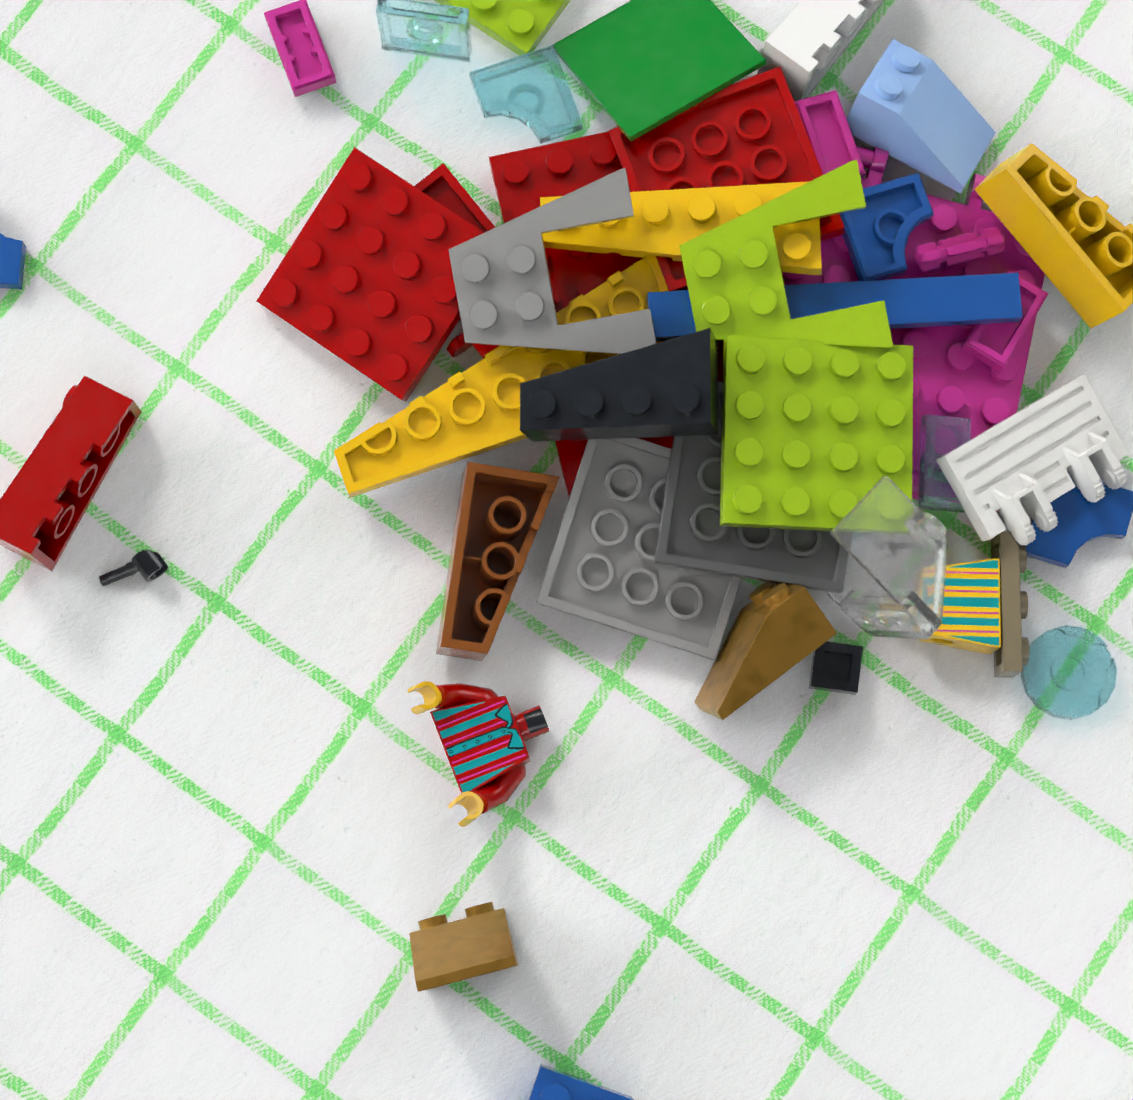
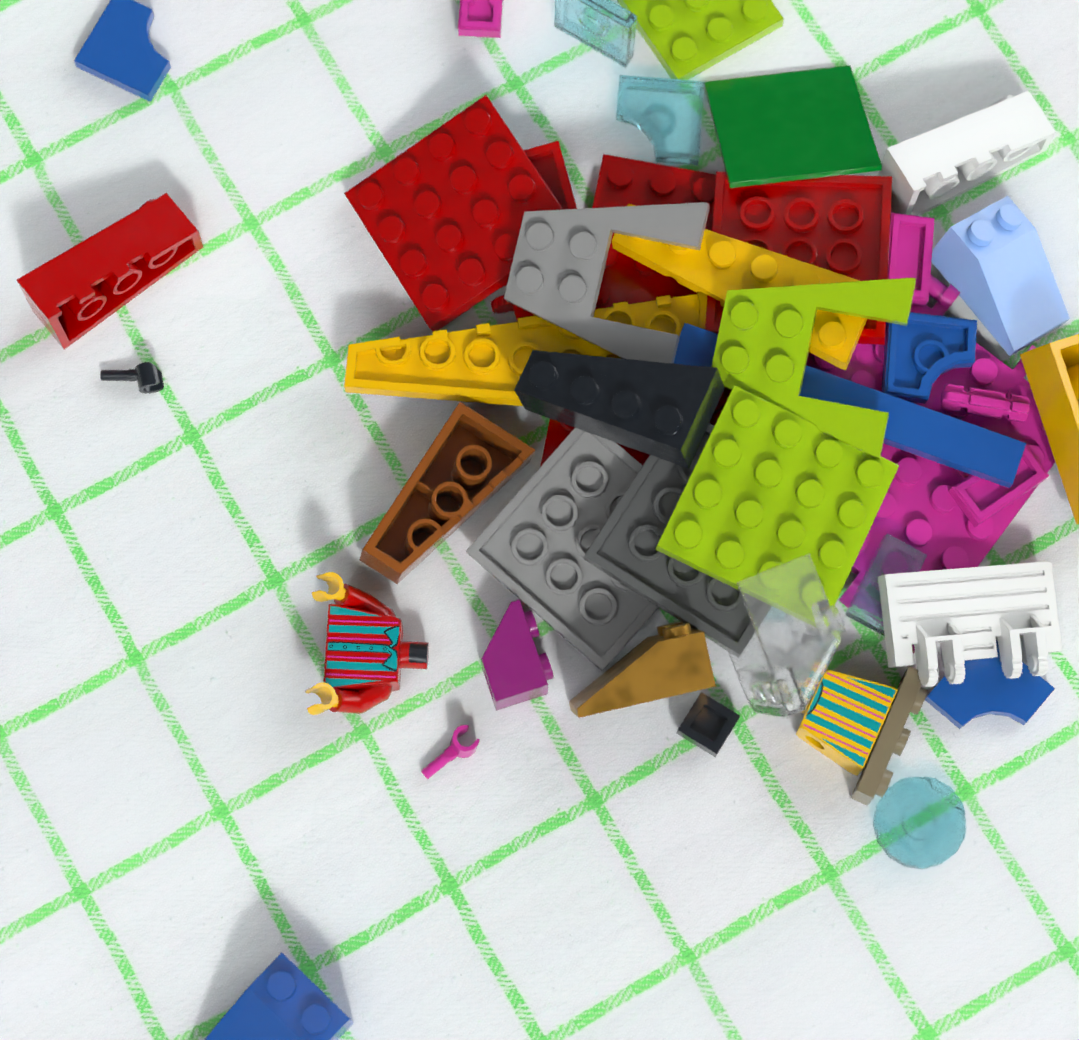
camera: 25 degrees right, 5 degrees down
(461, 948) = (260, 822): pearl gold slope -> none
(606, 802) = (451, 752): none -> dark pink hand
(627, 689) = (512, 662): none -> magenta slope

